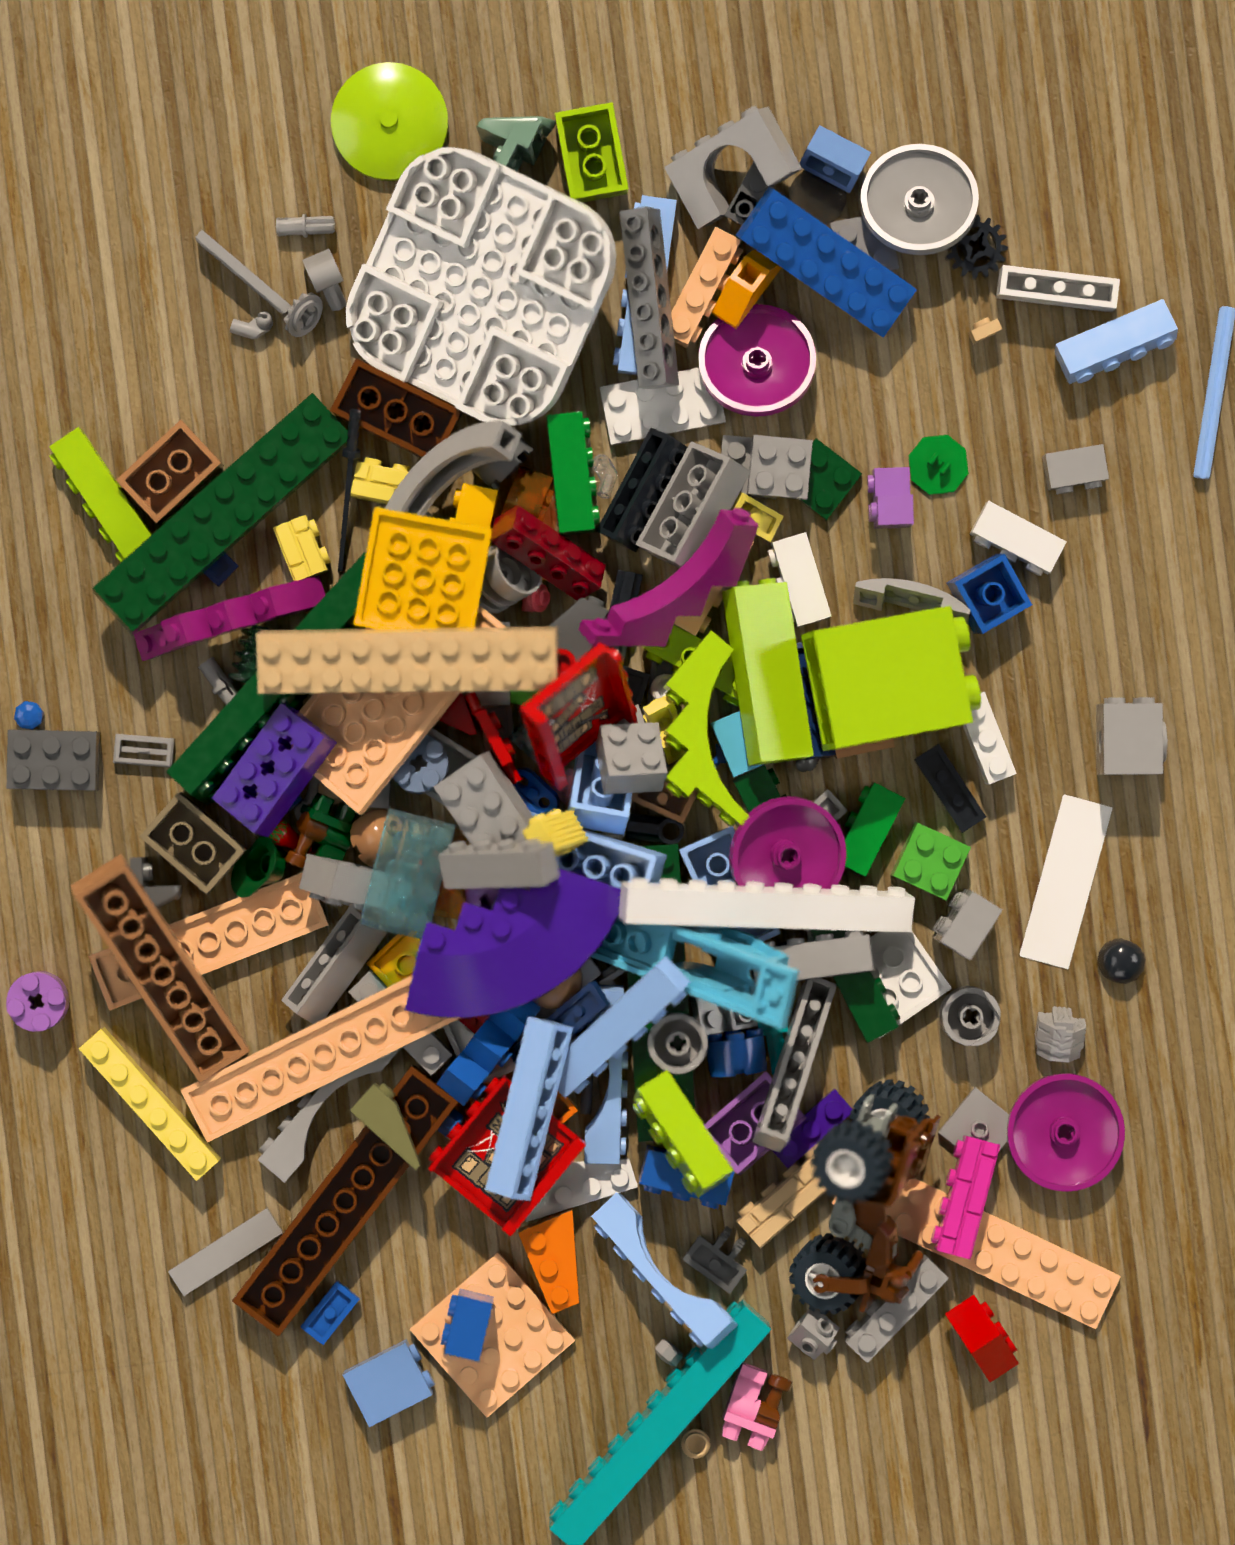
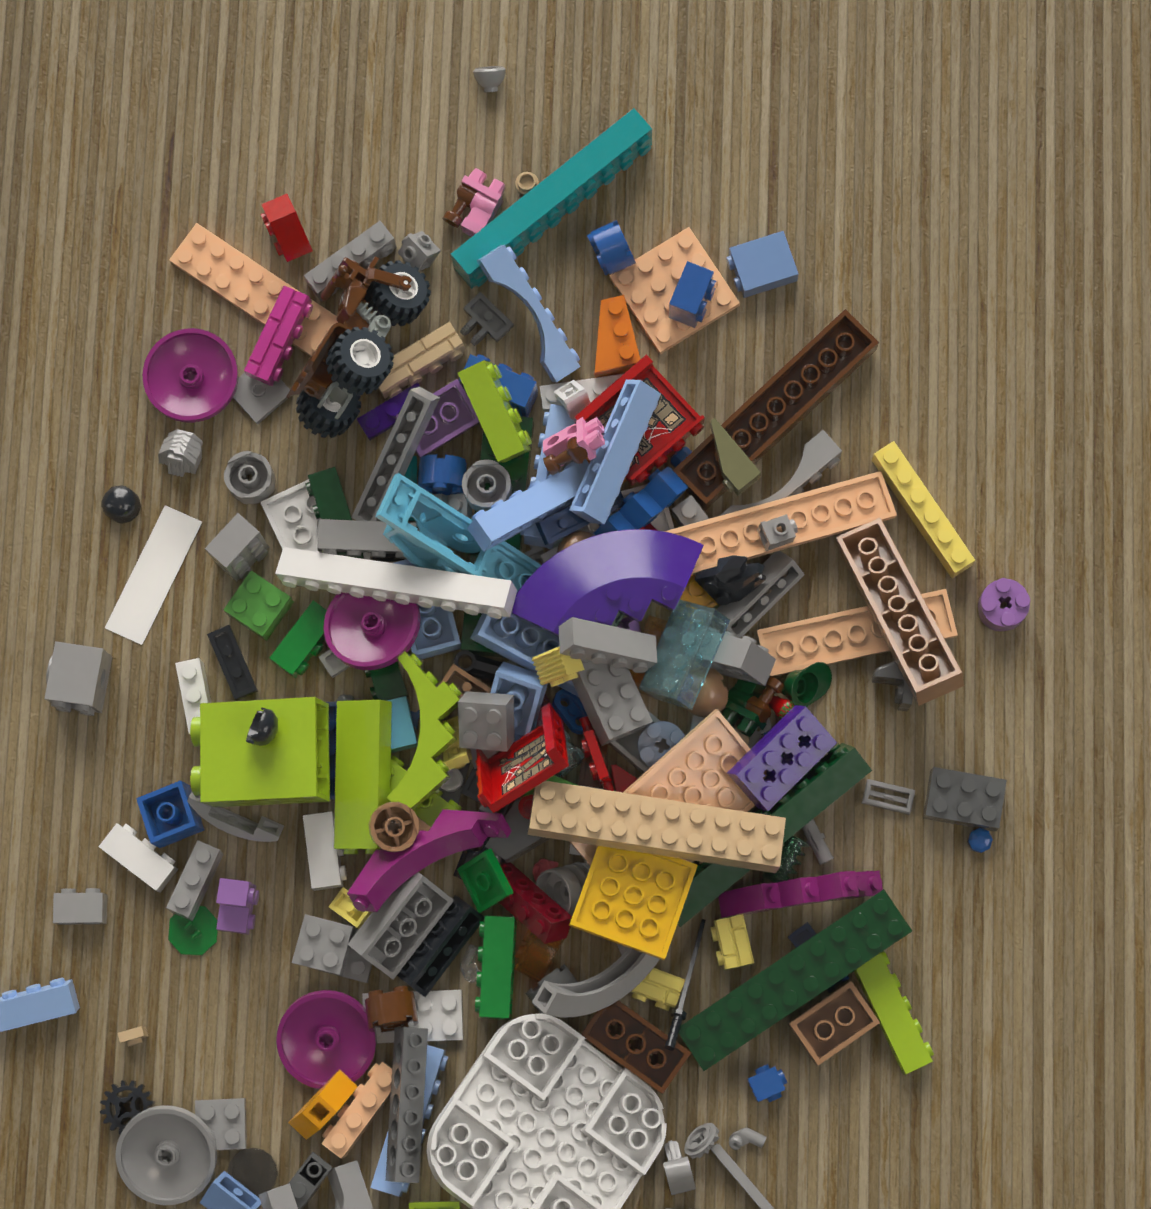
camera: 165 degrees left, 10 degrees down
(193, 842) = (857, 712): dark tan brick -> none
(225, 1251) = (878, 386): light grey tile -> none
(237, 392) = (767, 1083): none -> blue brick
(324, 1032) = (771, 537): none -> light grey brick
(330, 1312) = (801, 325): blue plate -> none
(366, 976) = (731, 579): none -> black plate
(475, 505) = (582, 951): yellow brick -> none
(576, 1373) = (612, 248): none -> blue brick
(581, 1109) = (573, 444): none -> bright pink hips
(593, 1173) = (573, 397): none -> white slope
(601, 570) = (485, 880): none -> green plate
(668, 1352) = (536, 254): light grey tile -> none
(686, 403) = (391, 1009): none -> reddish brown brick
(717, 612) = (393, 826): none -> medium nougat cylinder
(826, 262) = (253, 1112): blue brick -> none
(828, 480) = (283, 930): dark green plate -> none
(890, 700) = (263, 728): none -> black hair
(945, 520) = (194, 880): none -> light grey brick
(1057, 288) = (65, 1060): white brick -> none

